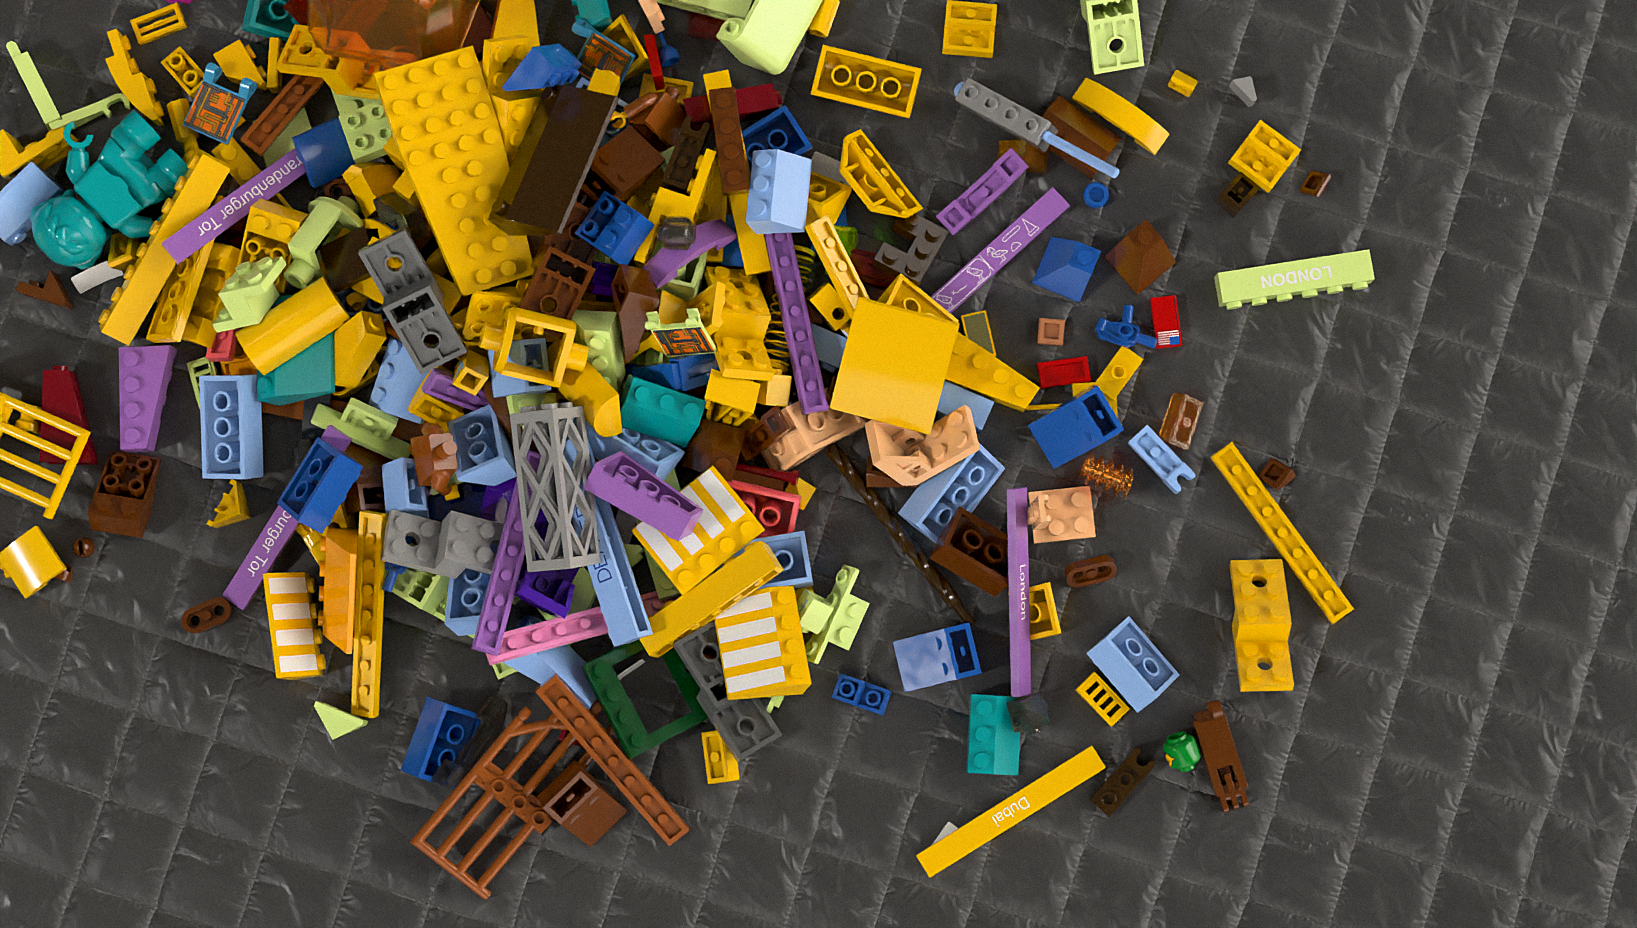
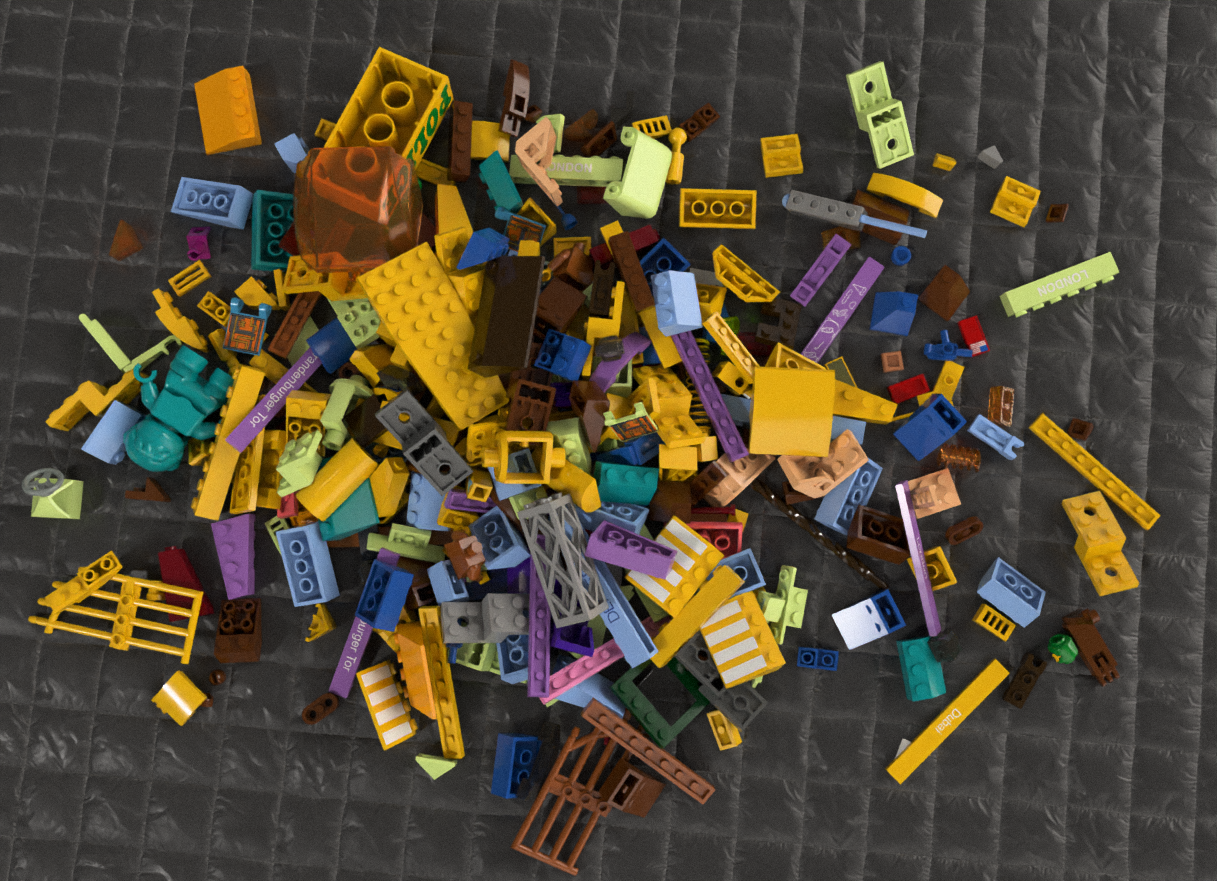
camera: 15 degrees left, 0 degrees up
(94, 276) = (181, 474): white sticker -> none
(654, 62) = (561, 230): red tile -> none
(1237, 194) = (1002, 234): dark brown slope -> none

